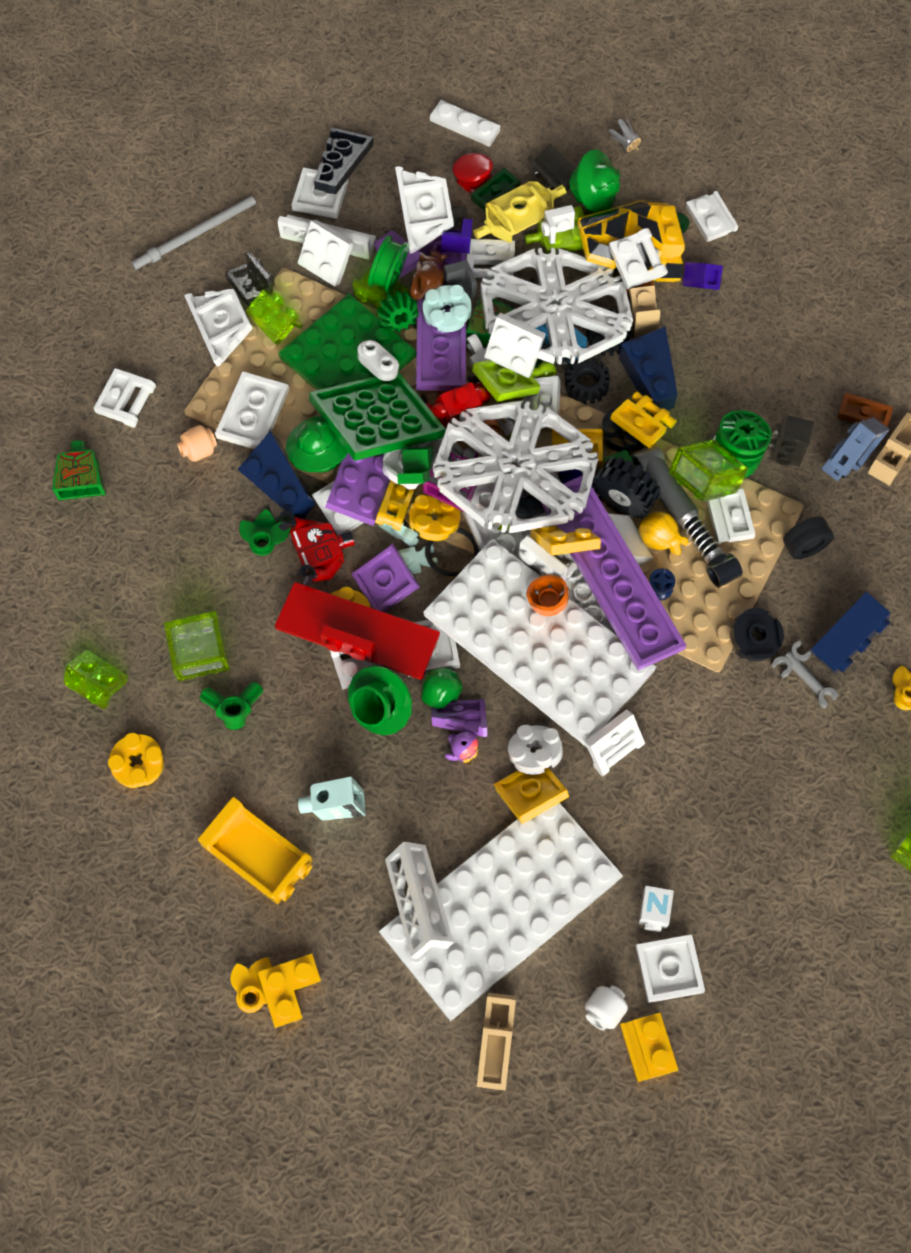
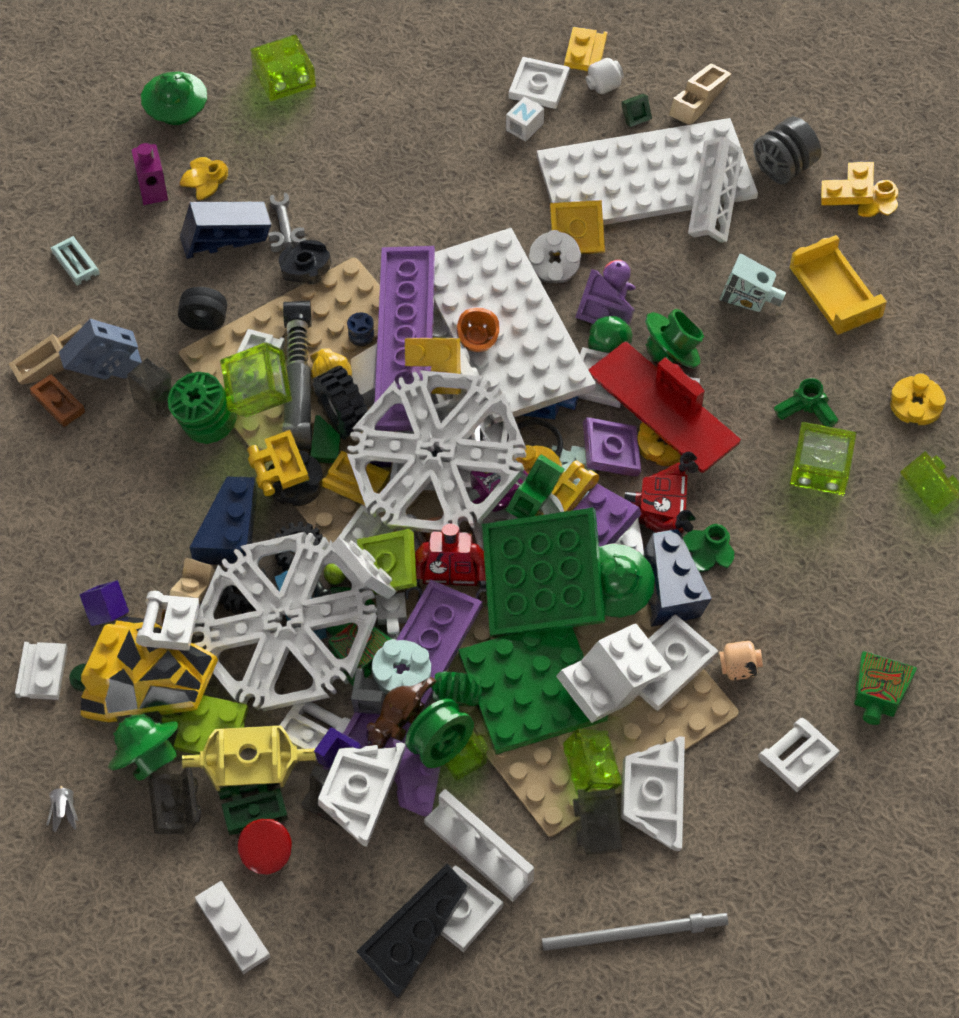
camera: 155 degrees left, 10 degrees down
(280, 372) = (613, 672): none -> white bracket
(325, 252) = (497, 808): white plate -> none
(367, 986) = (787, 150): none -> dark grey wheel
(374, 357) = (506, 641): white plate -> none
(550, 978) = (636, 110): none -> dark green tile
(557, 221) = (218, 715): white bracket -> none
(614, 742) = (476, 230): white plate -> none

